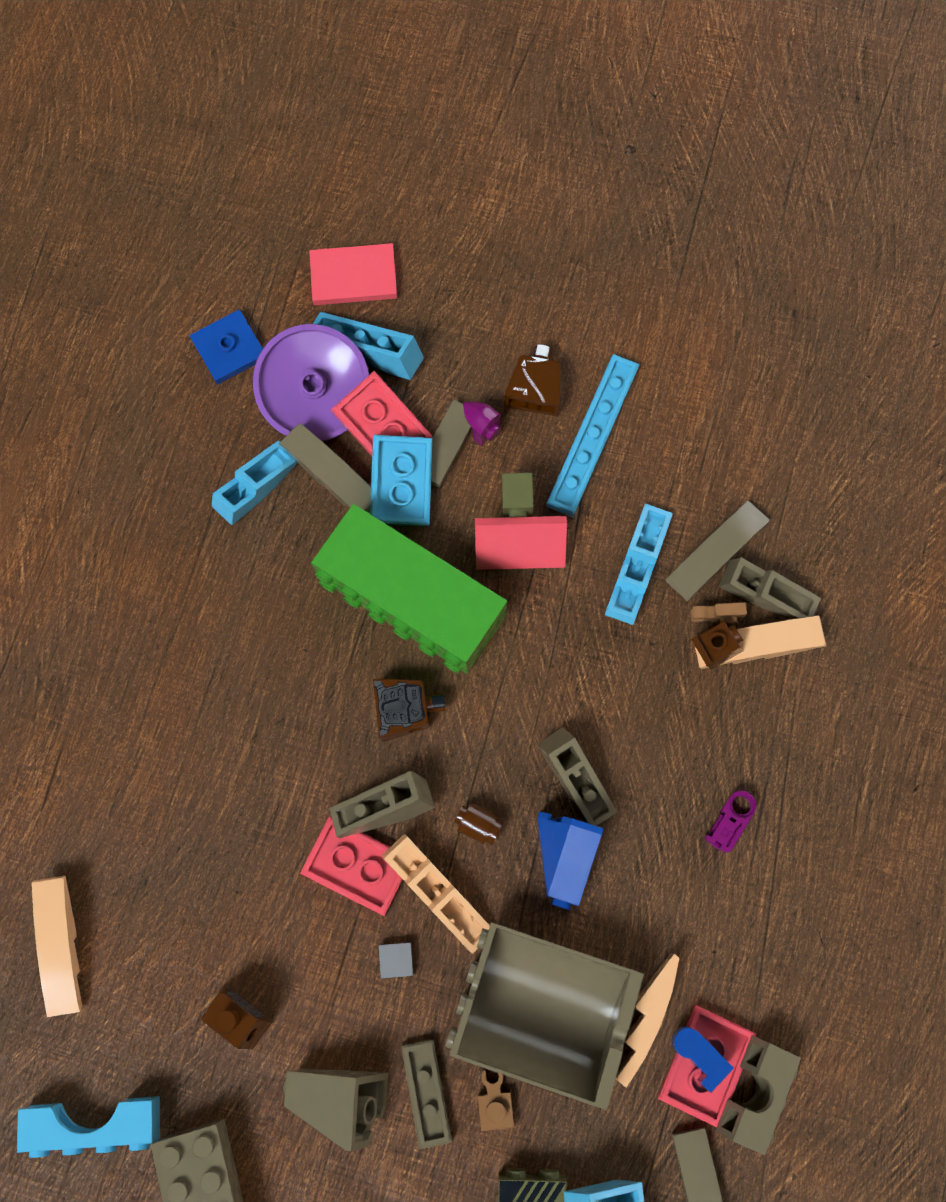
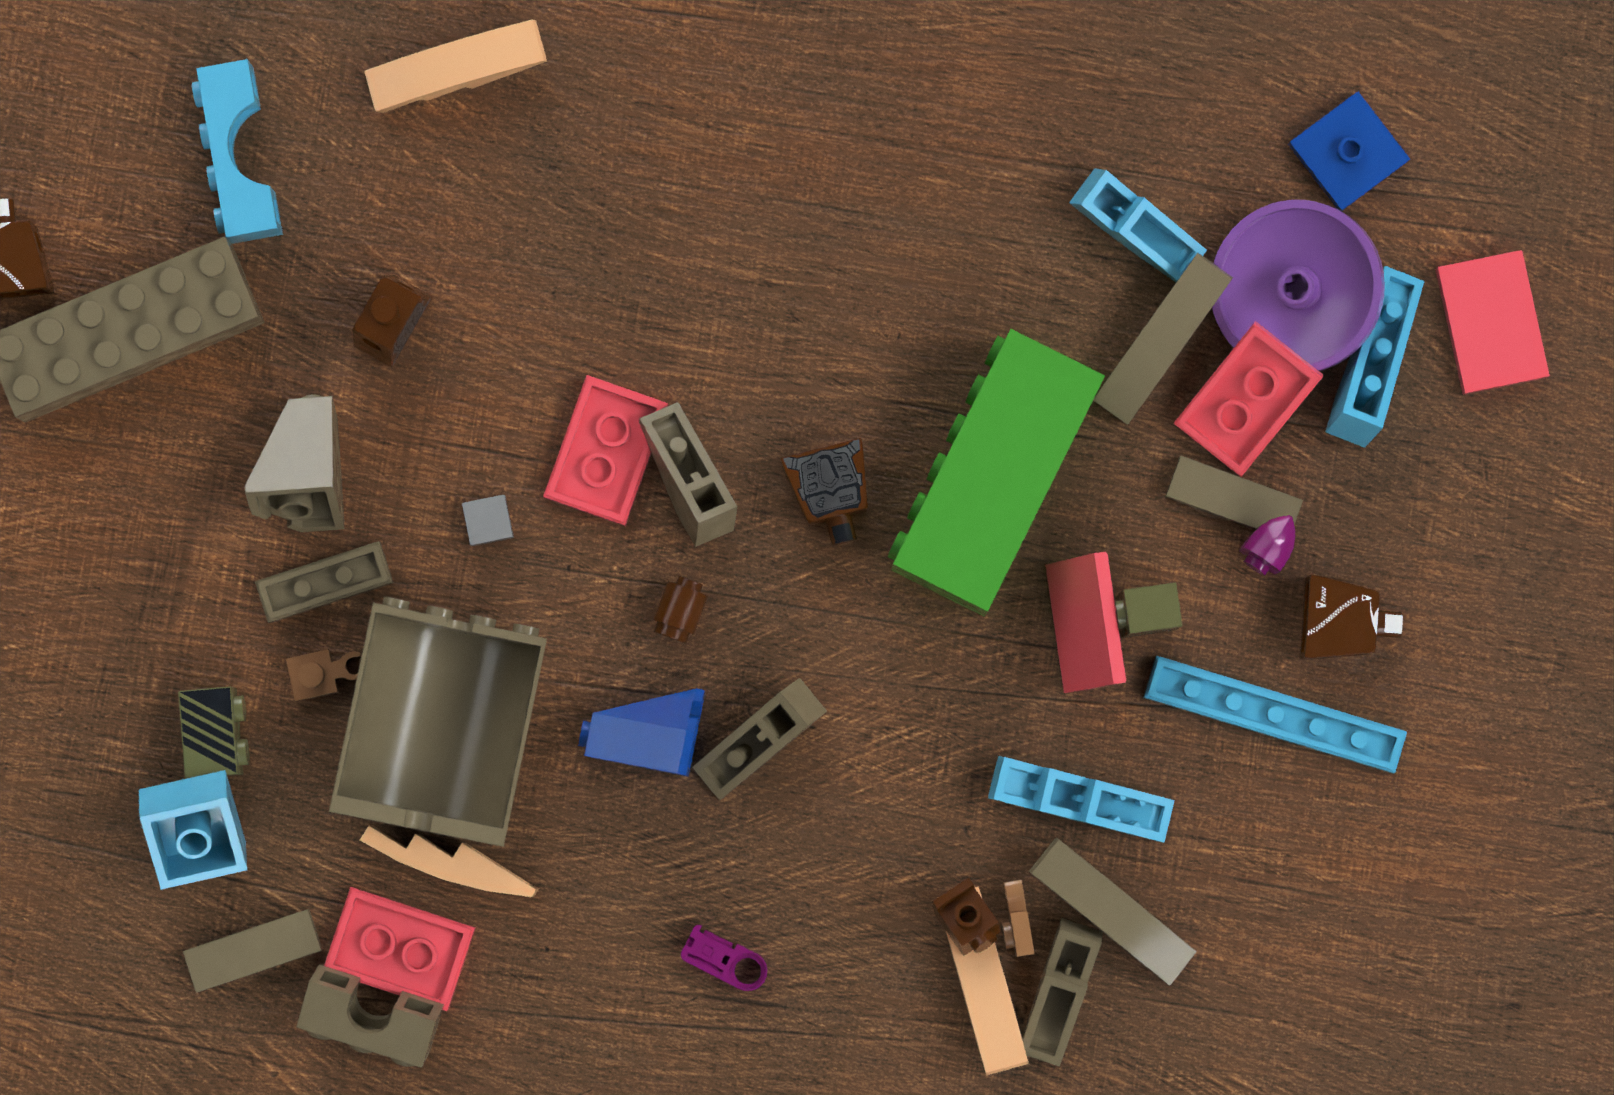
camera: 80 degrees right, 10 degrees up
(401, 480) = (1162, 438): medium azure tile -> none
(436, 892) = (583, 562): light nougat slope -> none
(704, 1056) = (421, 924): blue leg -> none

